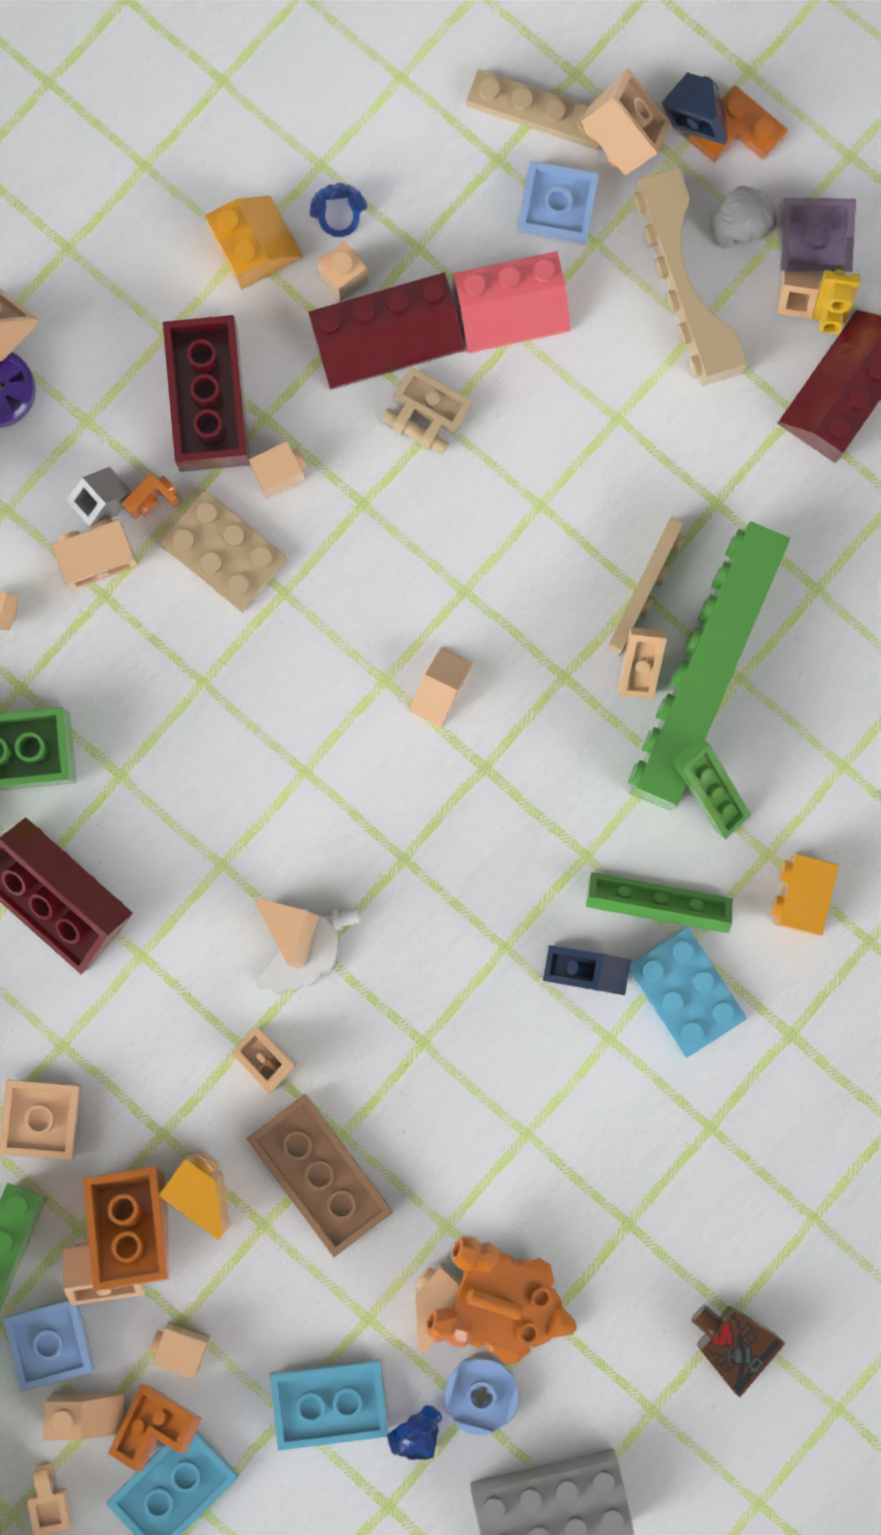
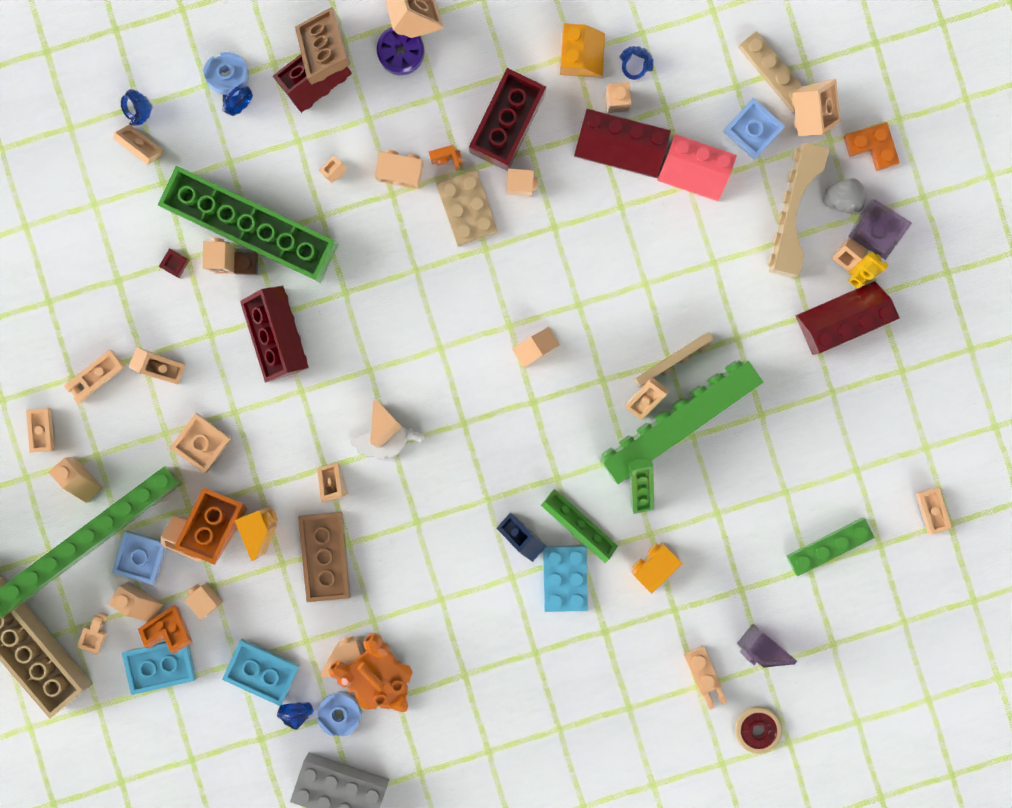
camera: 40 degrees right, 5 degrees up
(99, 496) = (419, 140): light grey brick -> none
(434, 402) = (622, 194): tan plate -> none
(697, 108) = (859, 122): dark blue slope -> none
(736, 1345) = (480, 768): reddish brown torso -> none

